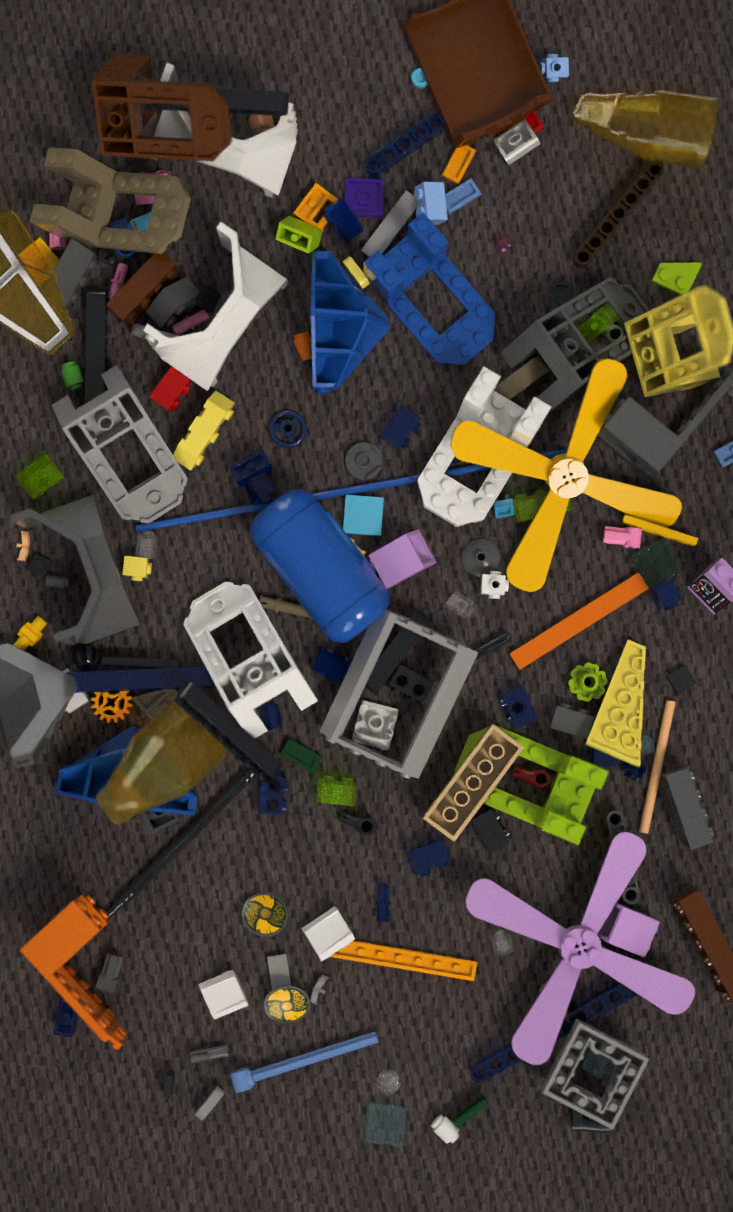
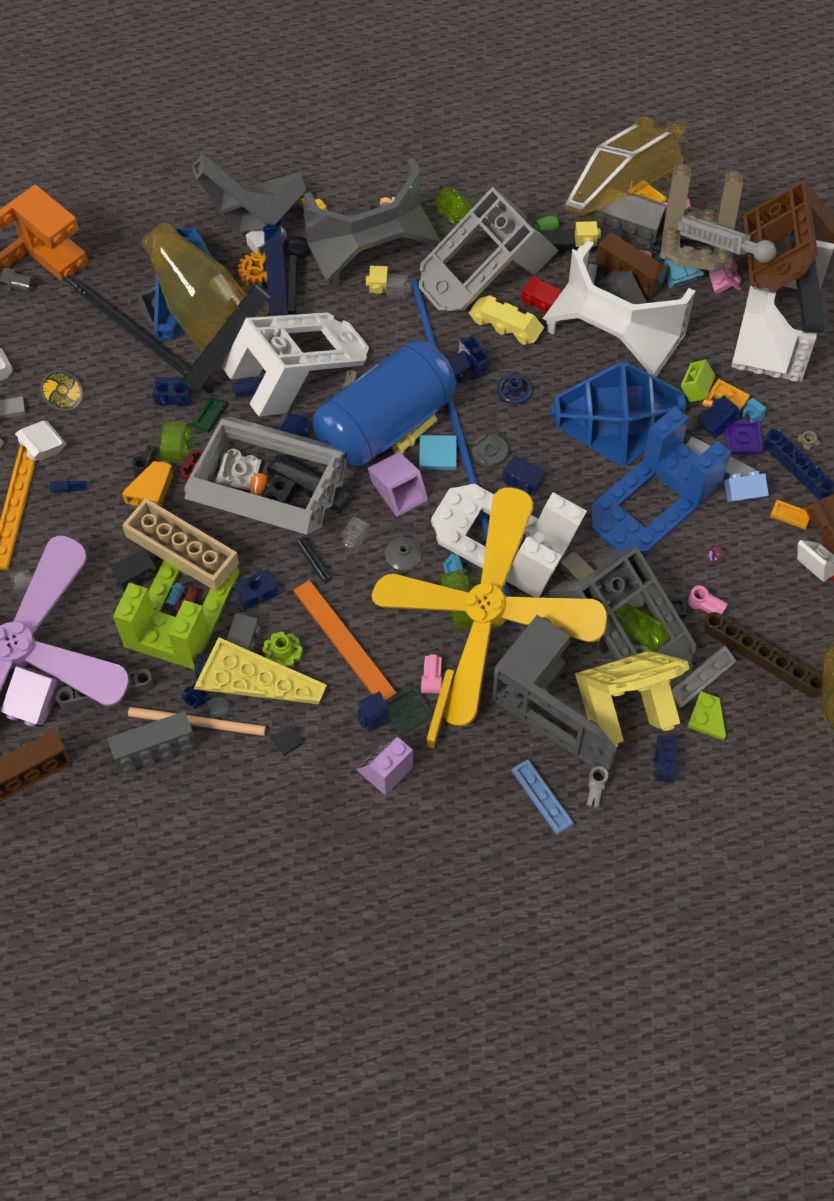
camera: 90 degrees right, 25 degrees down
(100, 330) = (586, 231): none -> light yellow brick
(142, 180) = (726, 238): none -> light grey gear
(335, 180) = (754, 410): none -> dark azure tile
(362, 776) = (190, 463): none -> dark red beam
(374, 125) = (808, 435): none -> dark tan plate
(391, 815) = (150, 484): none -> light orange slope
(398, 703) = (258, 484): none -> orange cone
(429, 856) = (110, 519): clear blue brick -> none
(461, 195) = (758, 517): medium blue tile -> none
(488, 589) = (376, 559): white brick -> none
(519, 788) = (175, 595): none -> dark azure pin
(558, 260) = (707, 602): none -> bright pink piece
(636, 276) = (702, 676): none -> light grey tile

